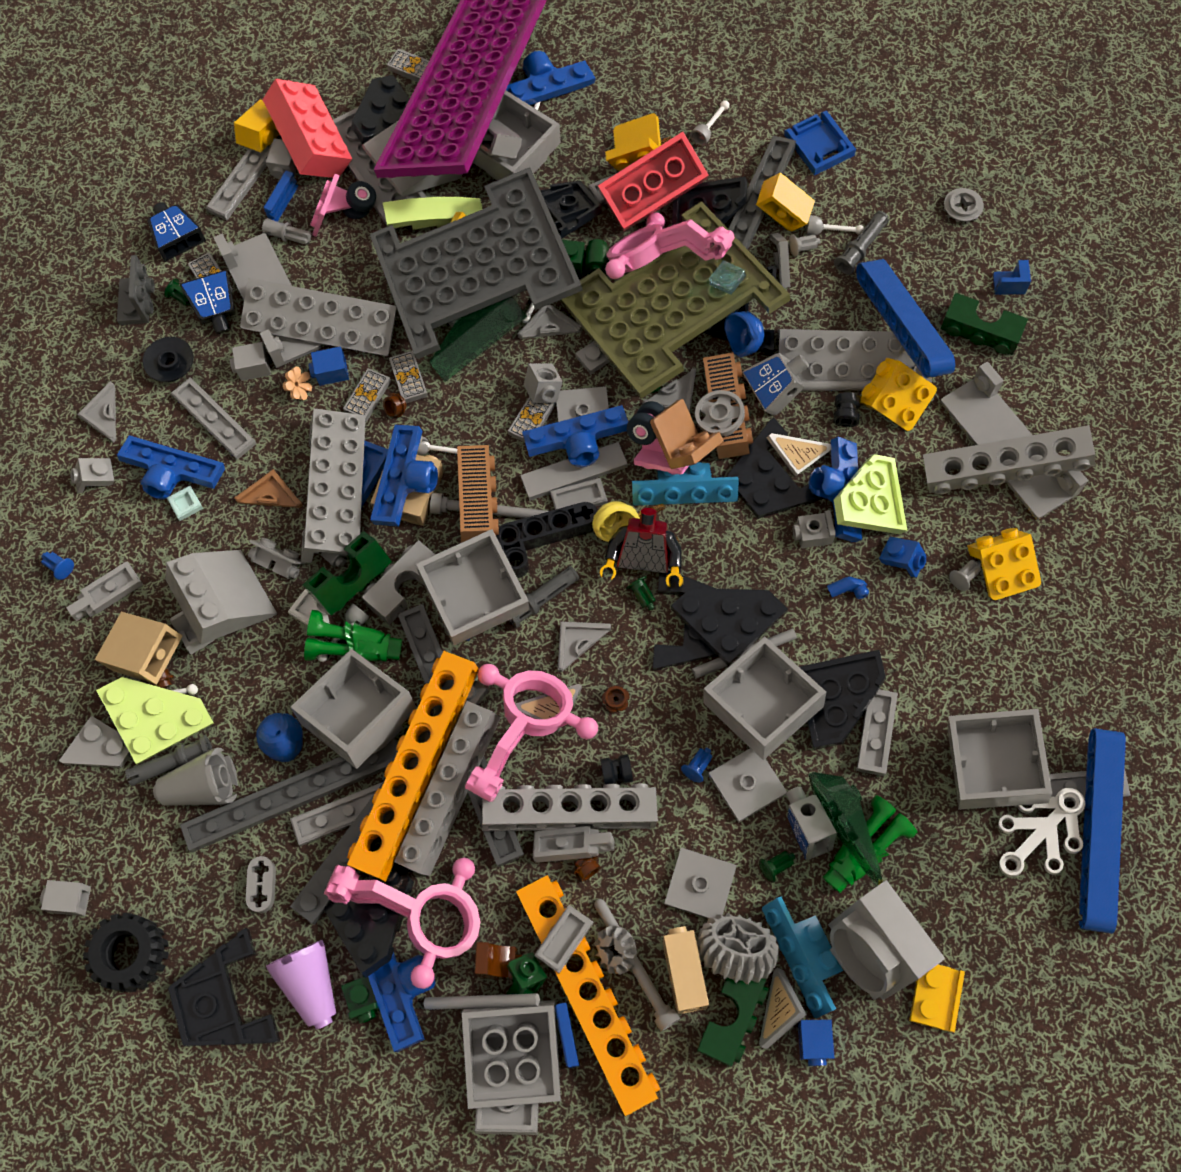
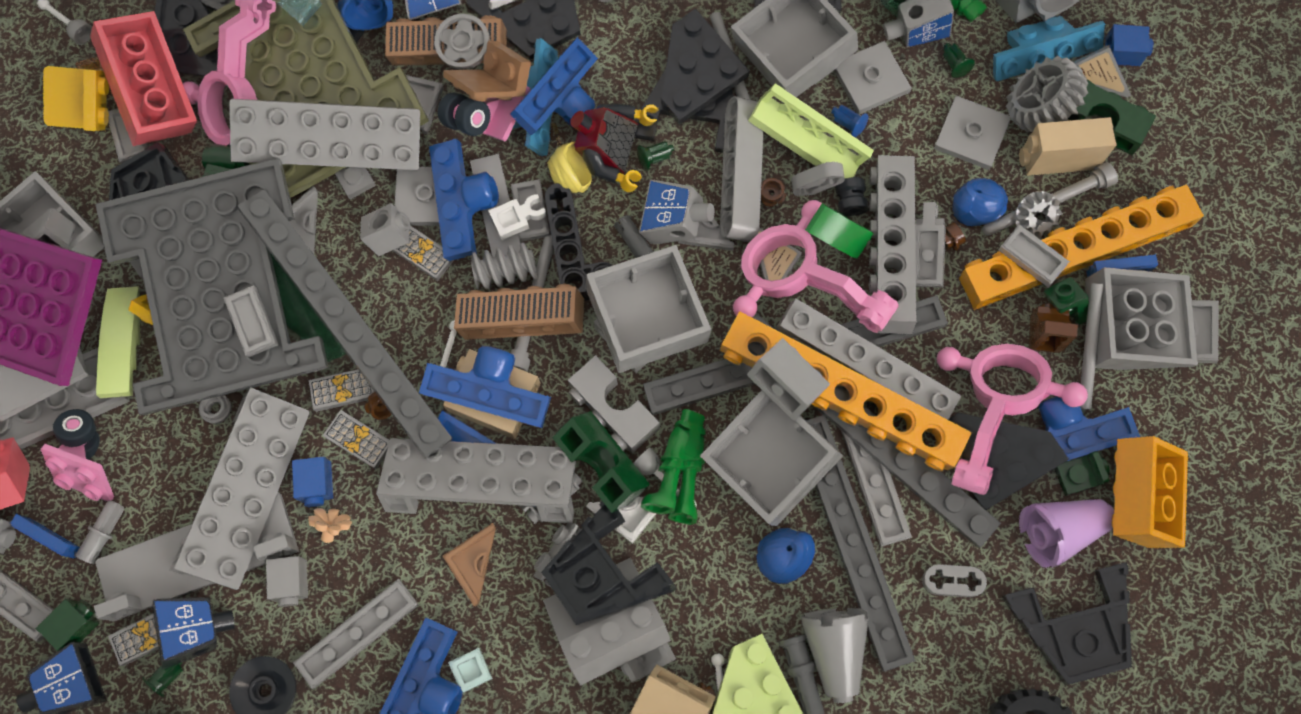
camera: 85 degrees left, 5 degrees up
(215, 222) = (68, 623): none -> dark green brick
(246, 572) = (590, 580): none -> black wing
(336, 1058) = (1150, 492): none -> light orange brick
(381, 285) = (206, 405): none -> light grey plate
(409, 704) = (788, 379): none -> light grey brick
(444, 293) = (250, 321): none -> light grey tile
(446, 359) = (345, 324): none -> dark grey plate
(516, 478) = (503, 266): none -> light grey piece
(564, 480) = (512, 218): none -> white plate
(567, 747) = (839, 231): none -> green slope
(582, 610) = (673, 212): none -> torso
(610, 320) = (324, 134): none -> light grey bracket
(624, 899) = (979, 202): none -> blue hair
(627, 735) = (818, 179): none -> light grey beam
(630, 666) = (741, 172): none -> light grey beam
(665, 721) = (805, 136): none -> yellowish green fence
(687, 500) = (558, 90): none -> blue plate

